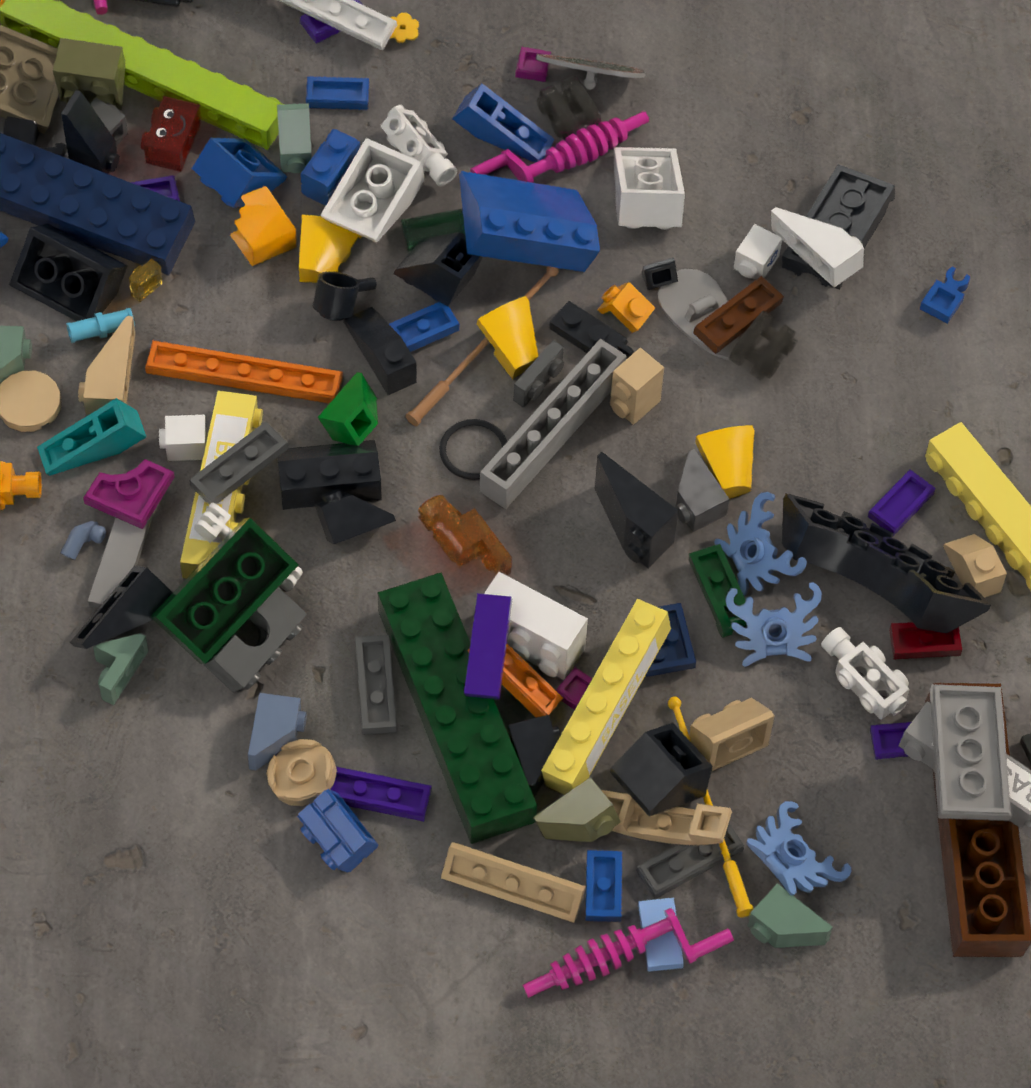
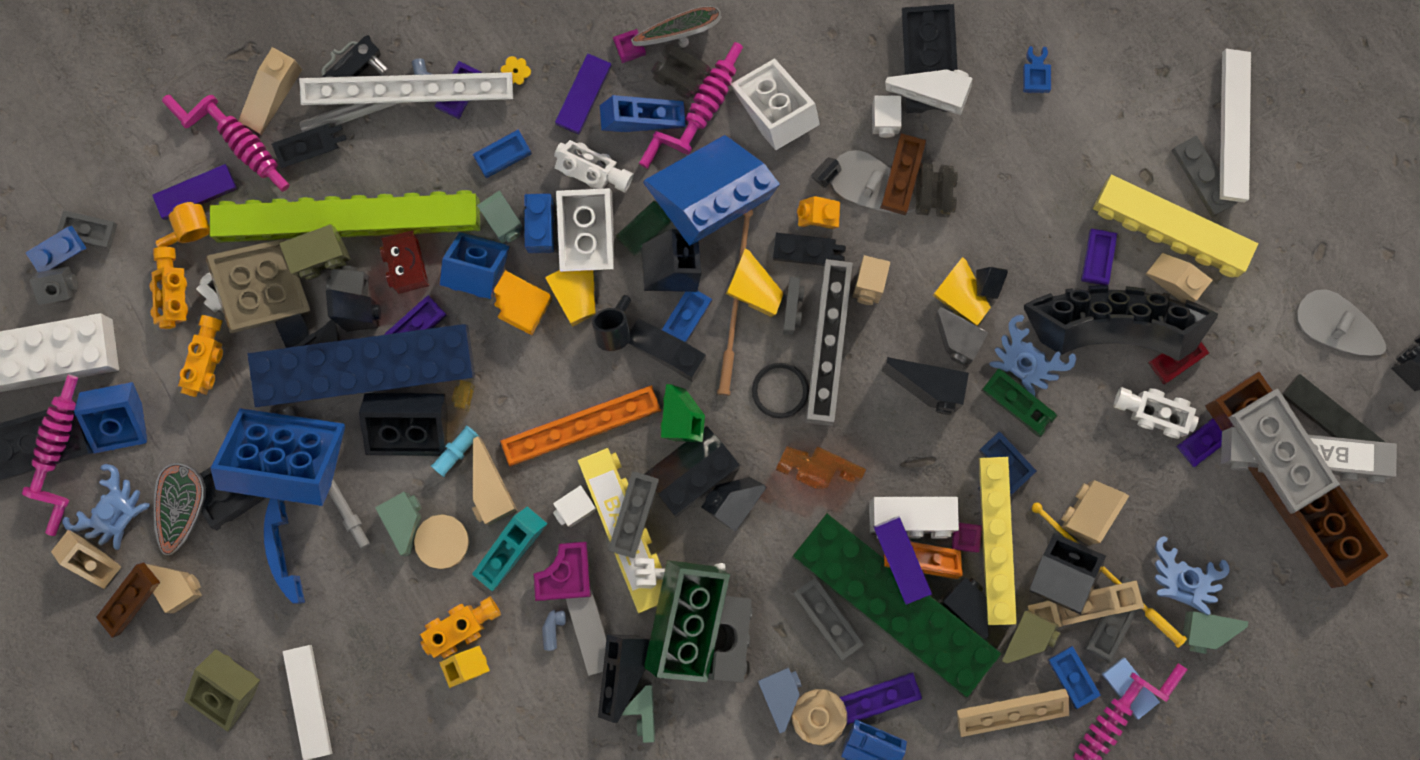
camera: 25 degrees left, 20 degrees up
(456, 81) = (583, 94): none -> dark purple tile
(766, 459) = (990, 281): none -> black slope
(775, 630) = (1076, 412): medium blue animal -> none

